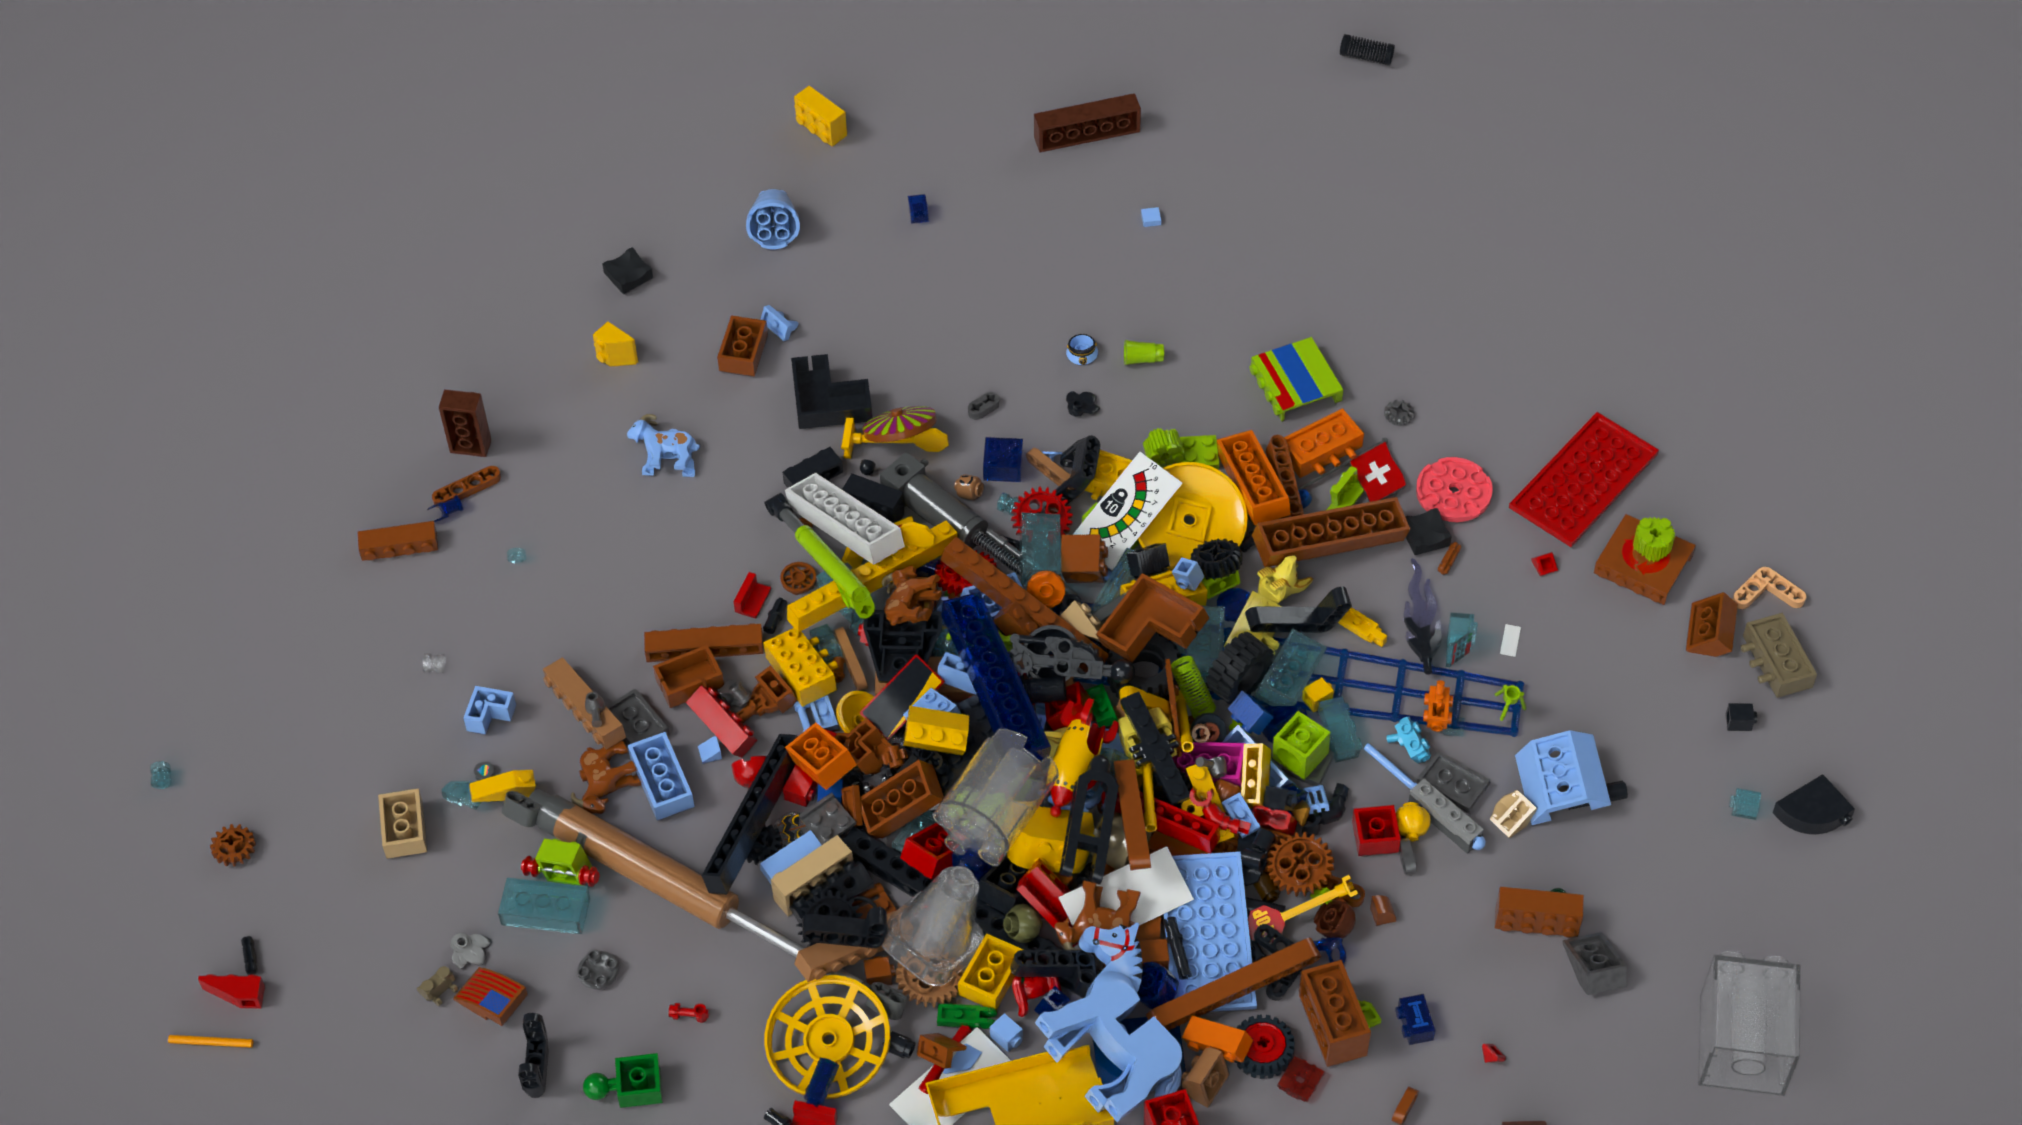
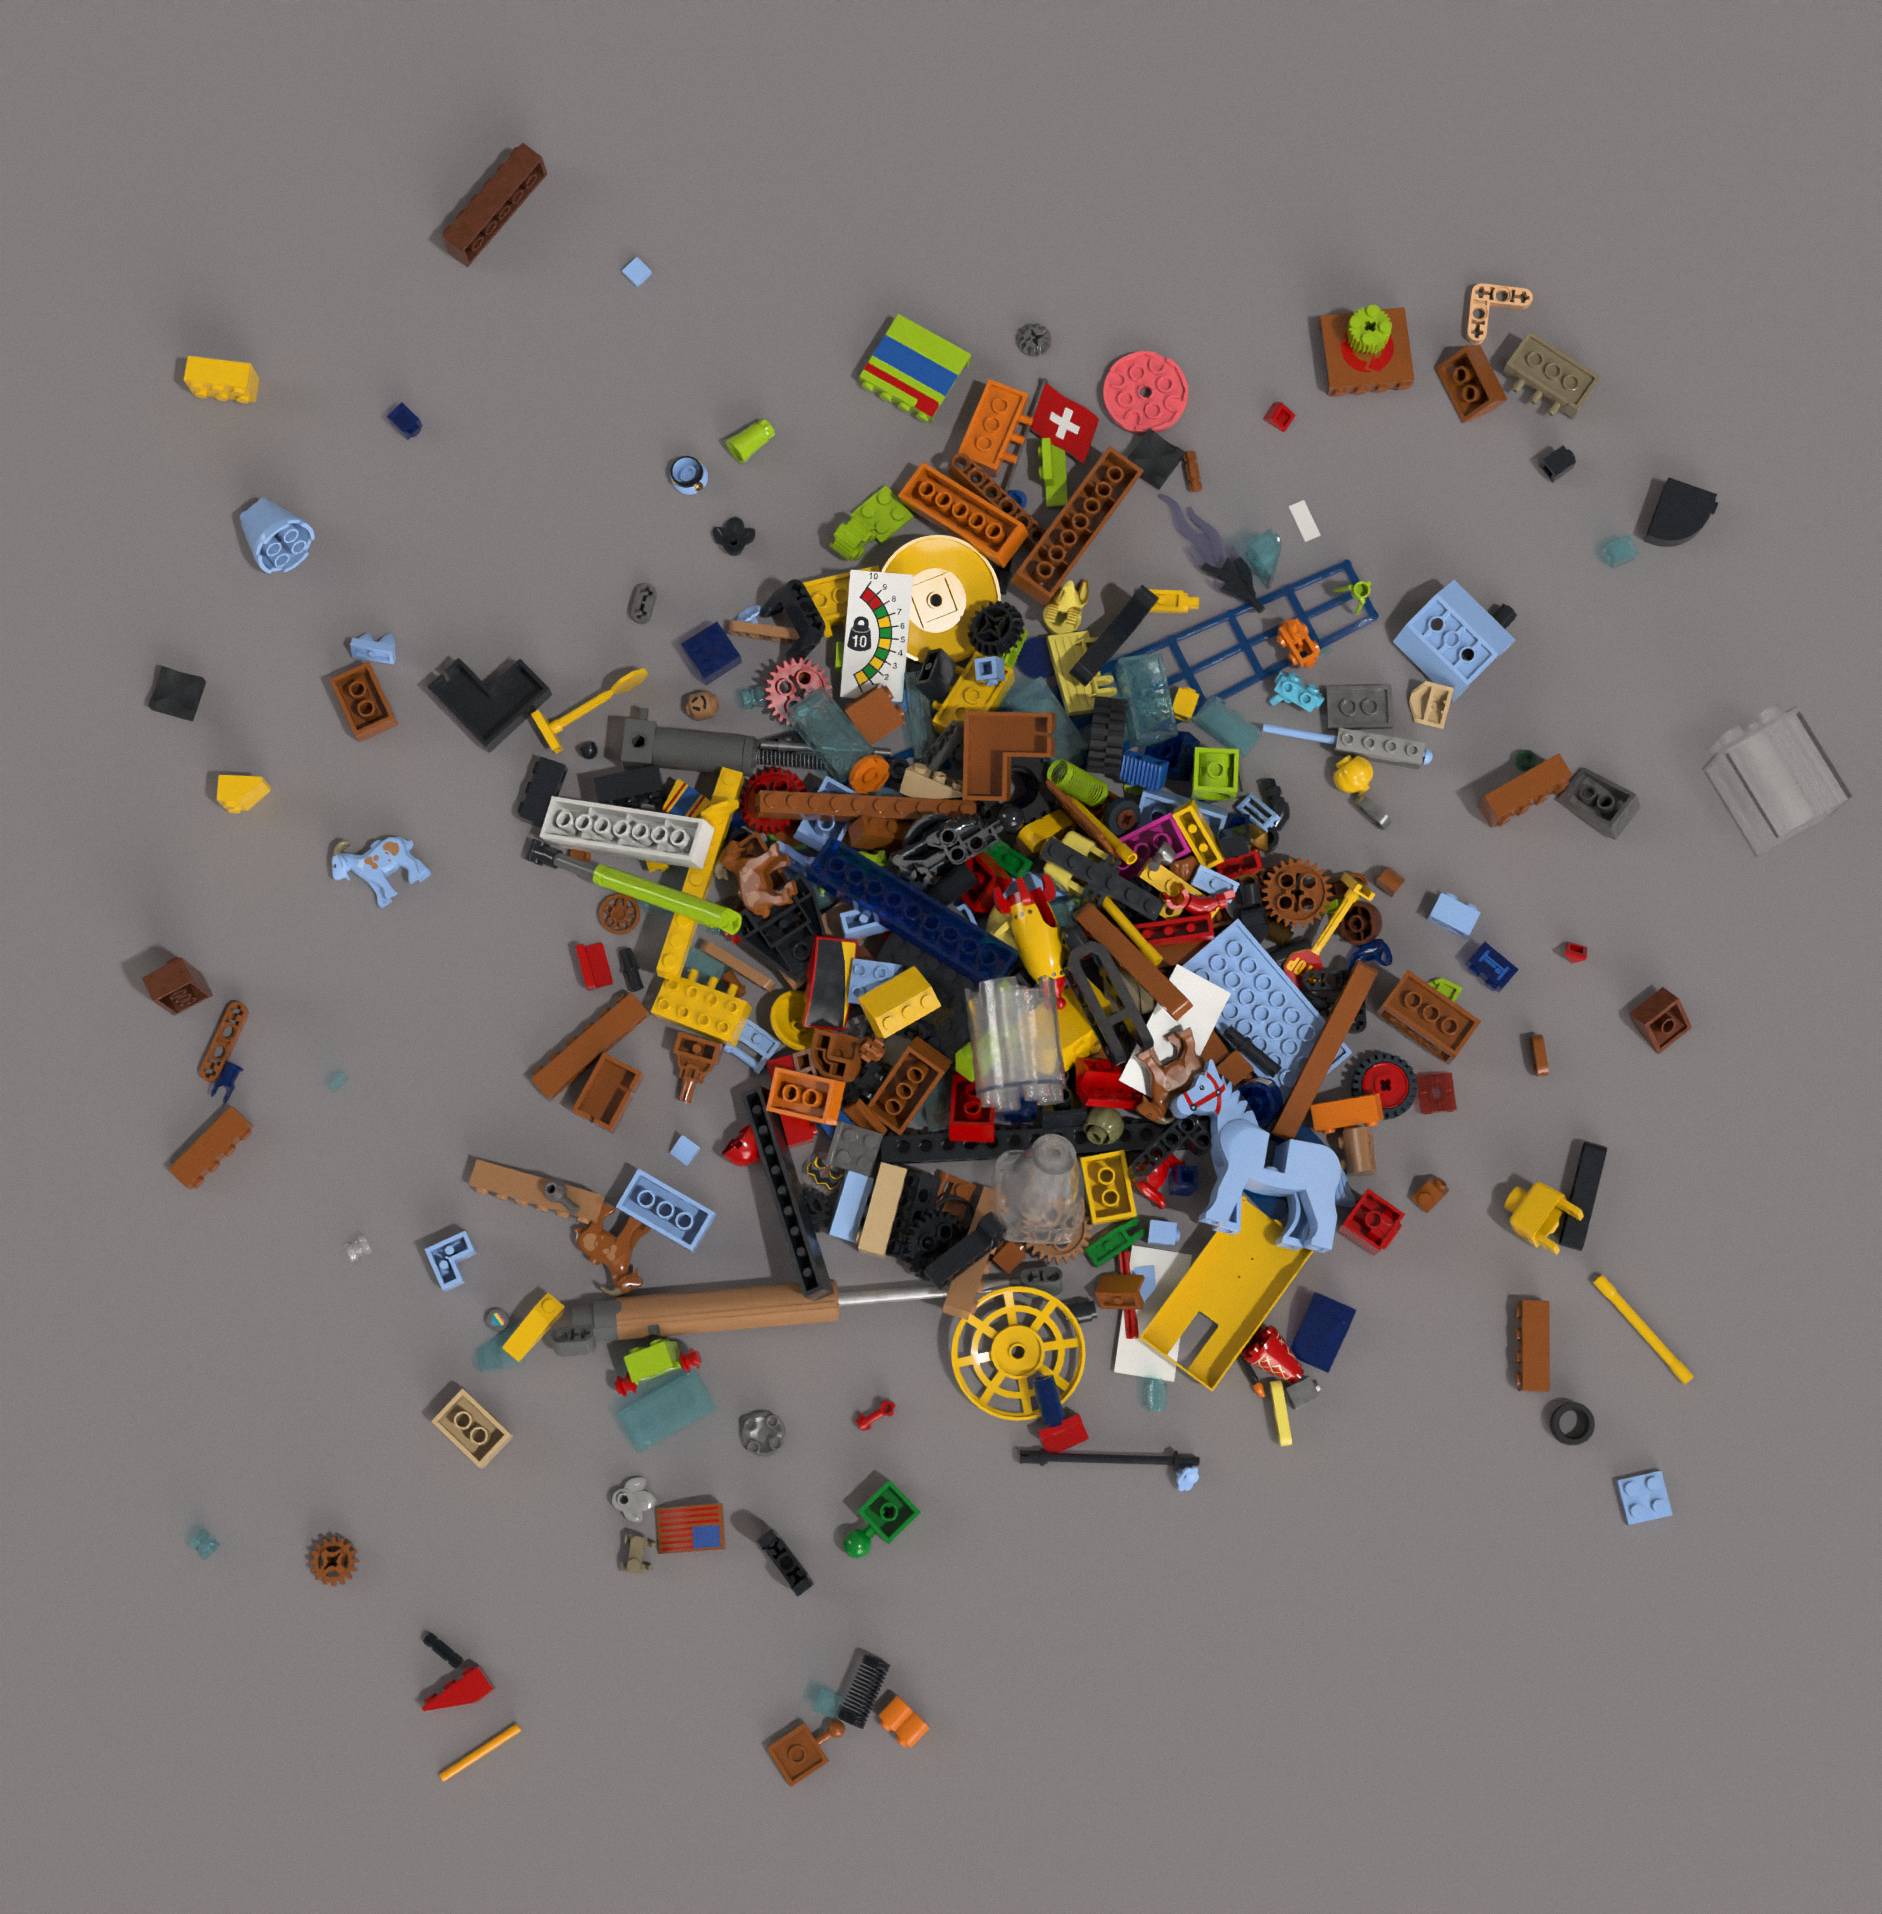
camera: 35 degrees left, 25 degrees up
(637, 717) = (593, 1169): flat silver plate -> none
(722, 721) = (675, 1116): brick -> none
(734, 693) = (663, 1080): flat silver piece -> none
(899, 423) = (589, 687): dish -> none
(1206, 731) = (1117, 823): medium nougat bush -> none
(1376, 830) = (1332, 807): red brick -> none
(1414, 964) = (1454, 915): none -> light blue brick
(1583, 479) = (1253, 298): red plate -> none

